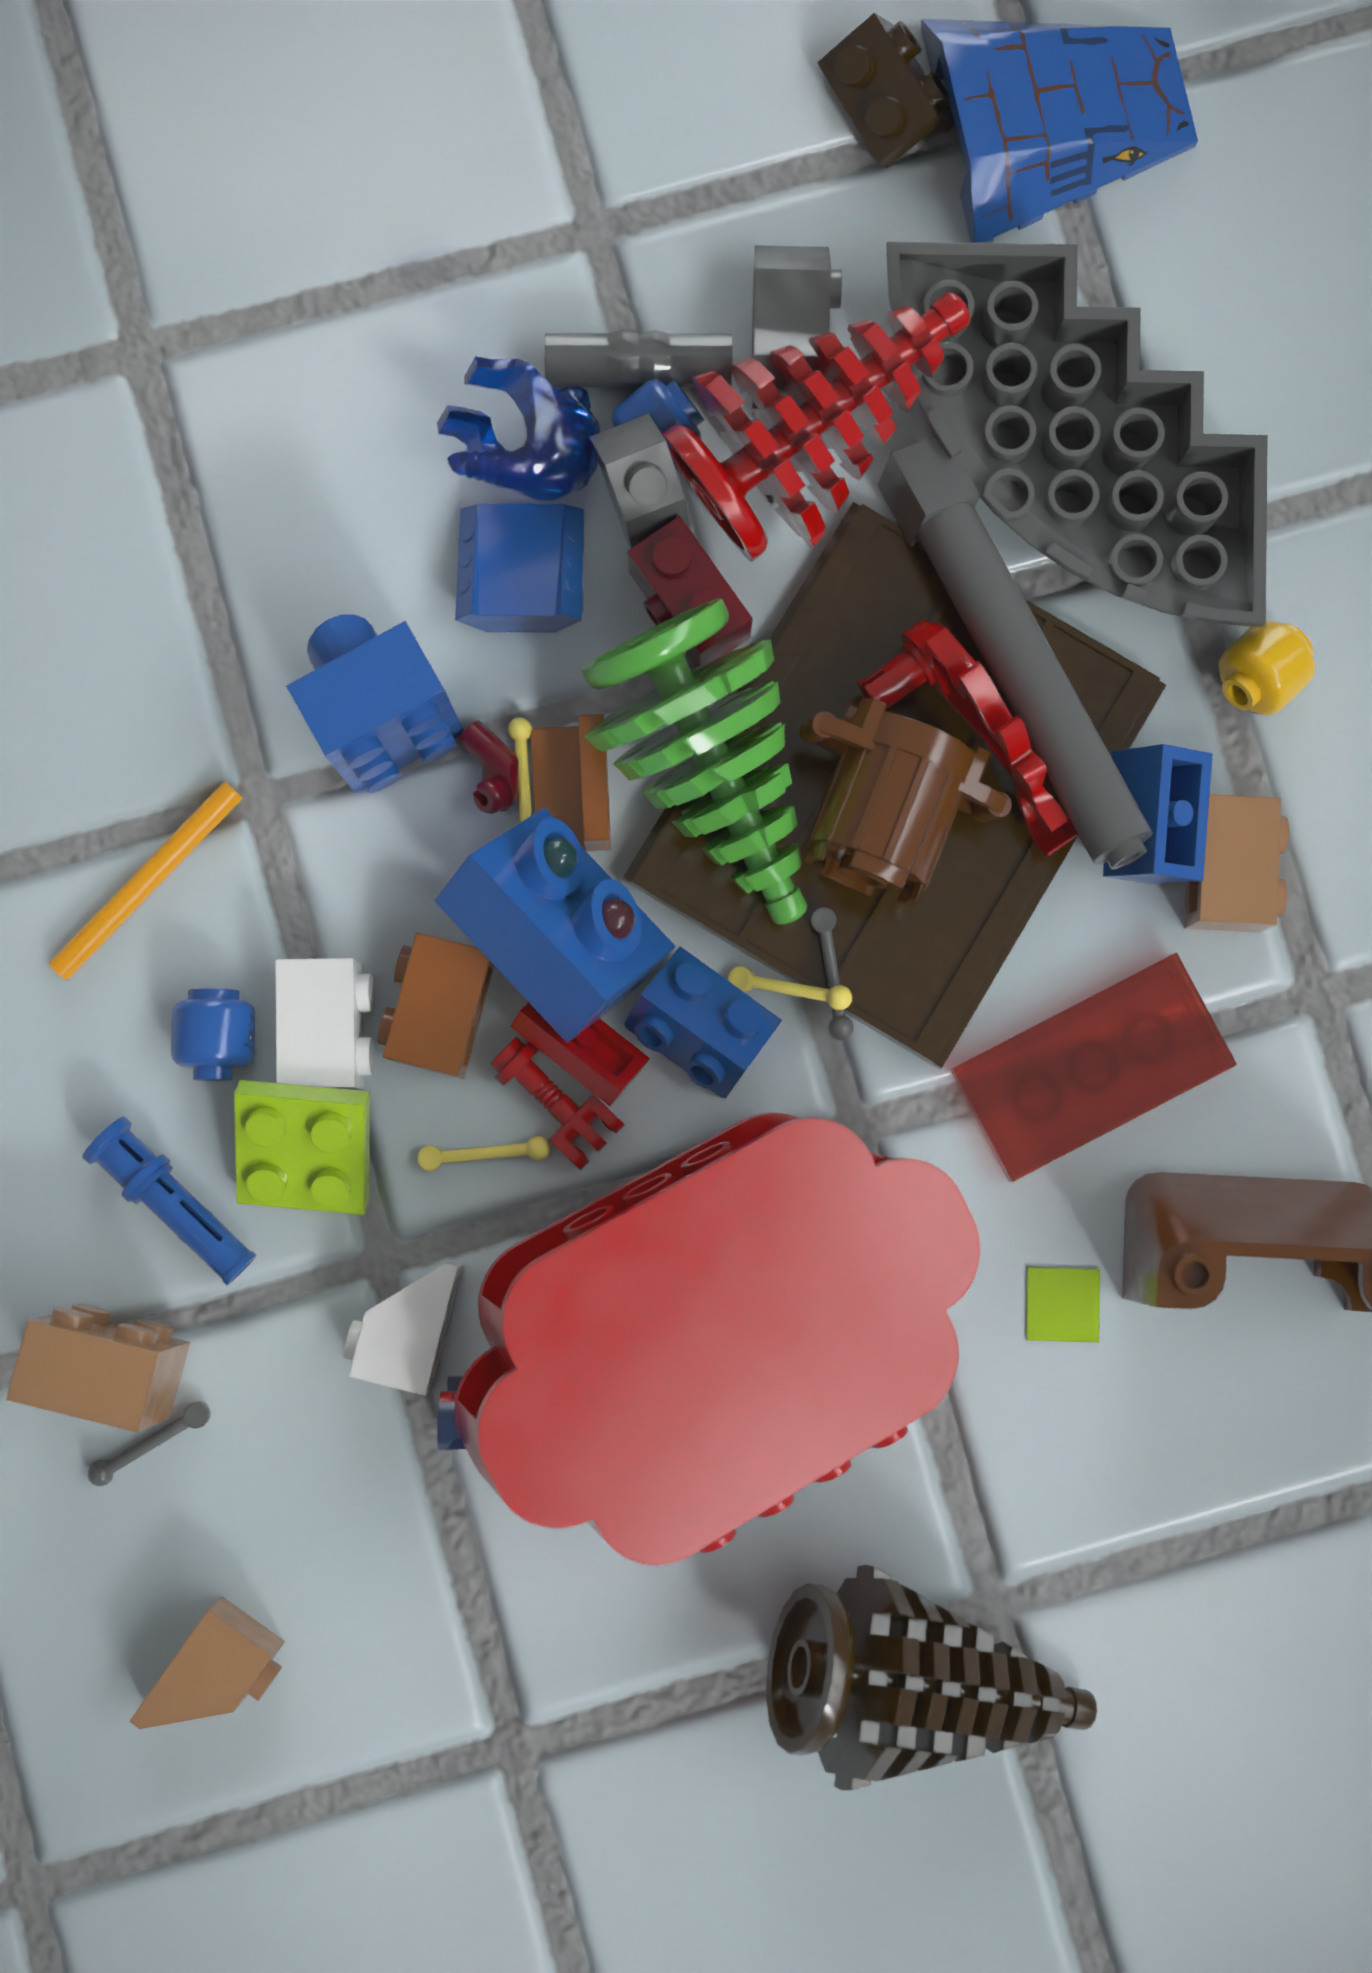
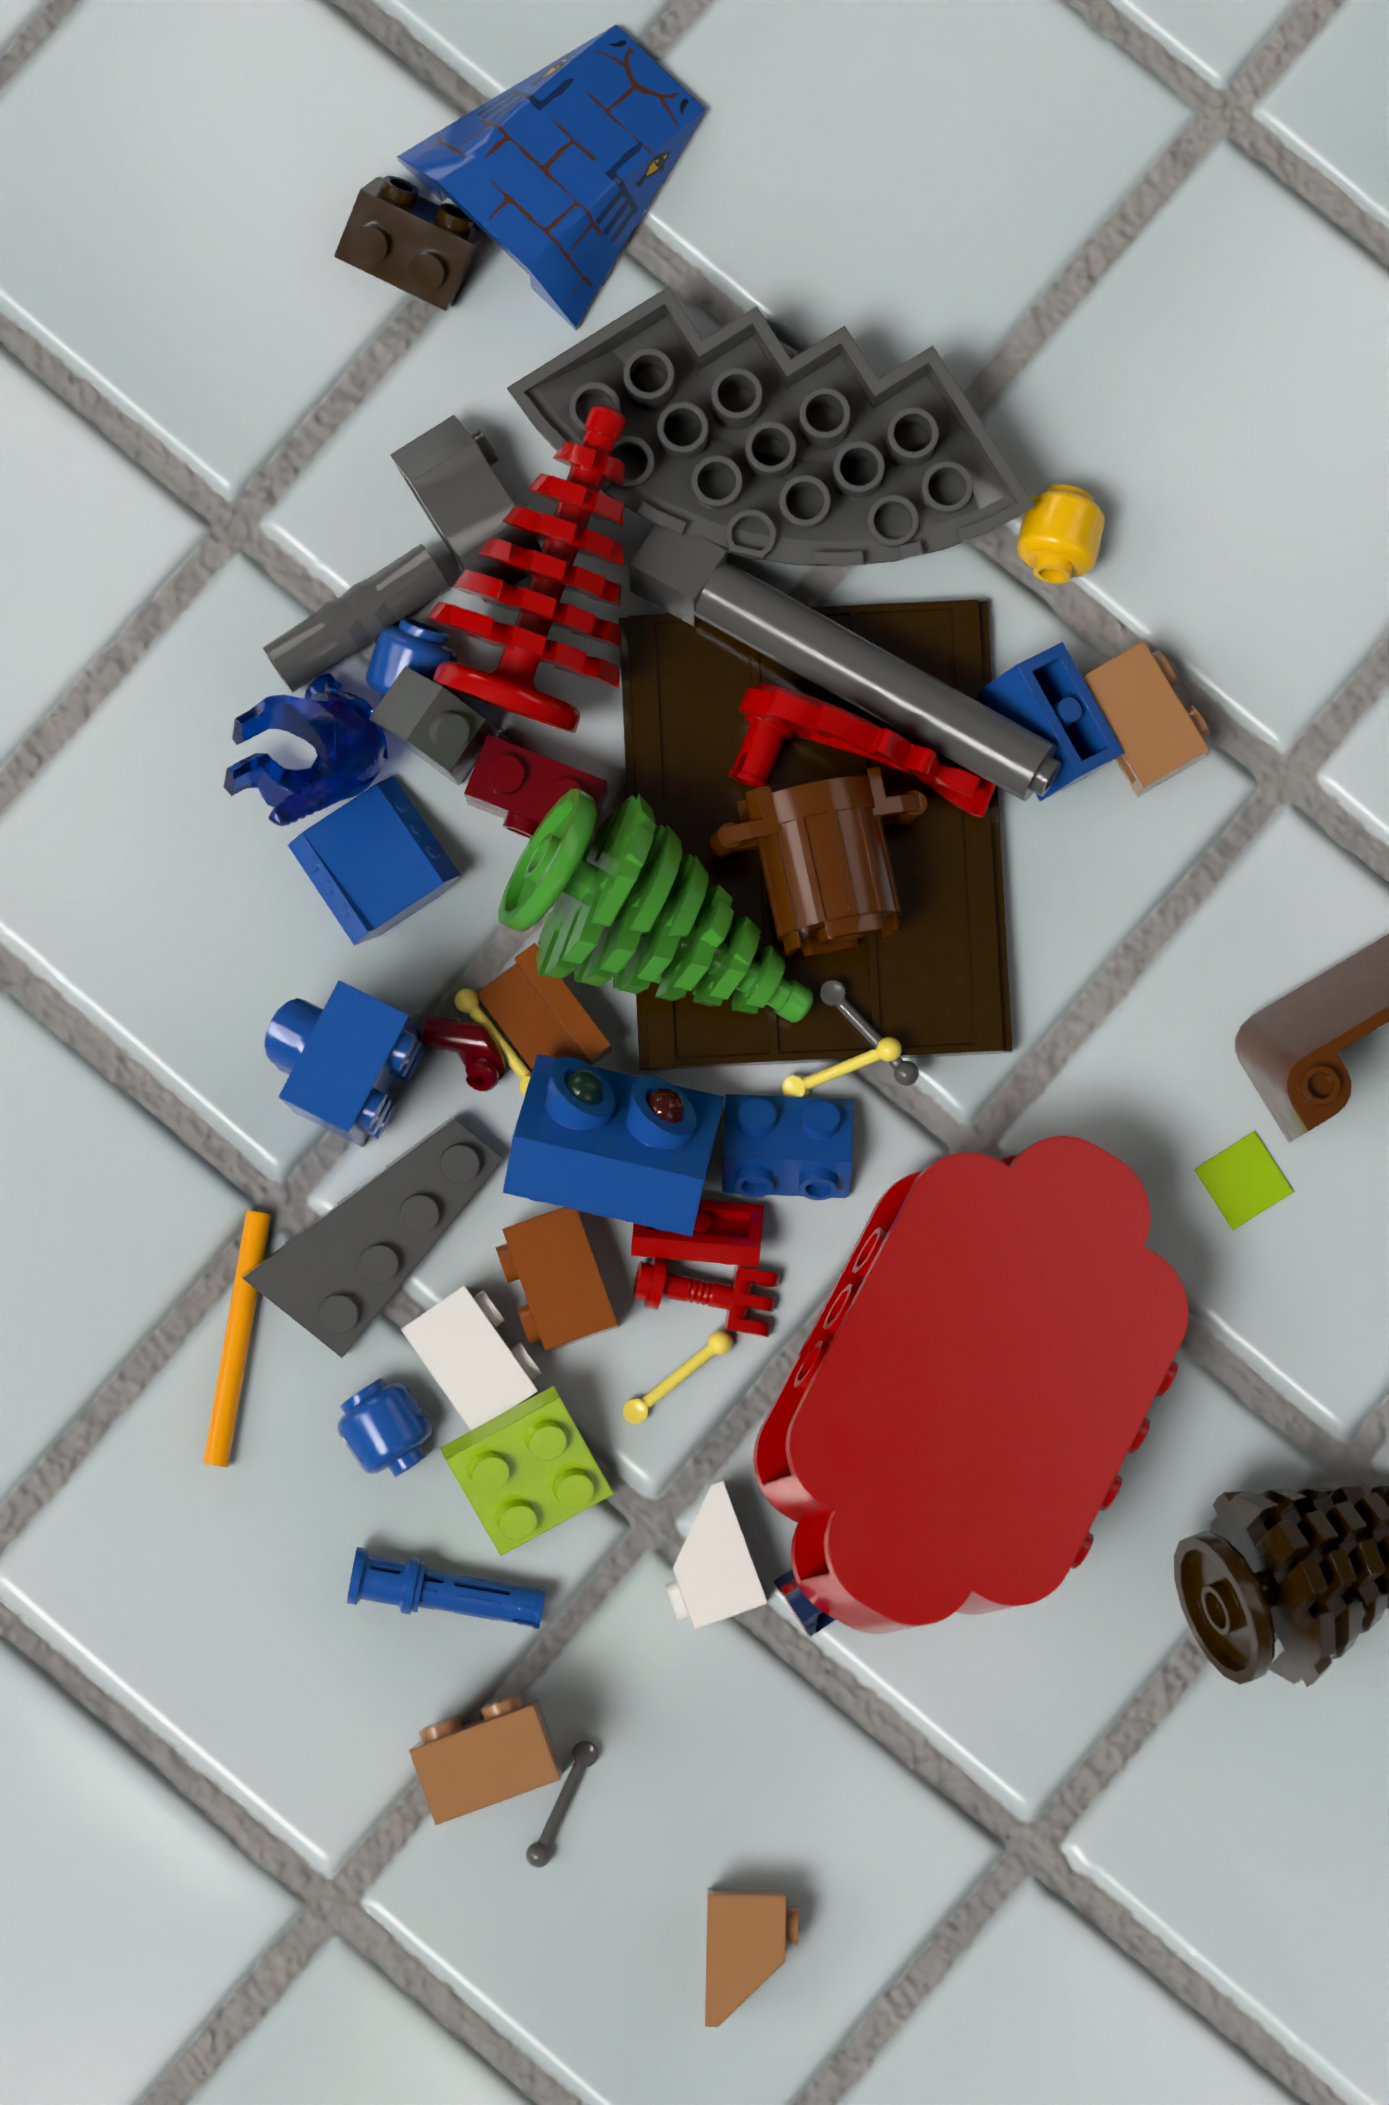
camera: 30 degrees left, 0 degrees up
(298, 874) = (364, 1248): none -> dark grey wing
(1093, 1067) = (1137, 966): clear red tile -> none

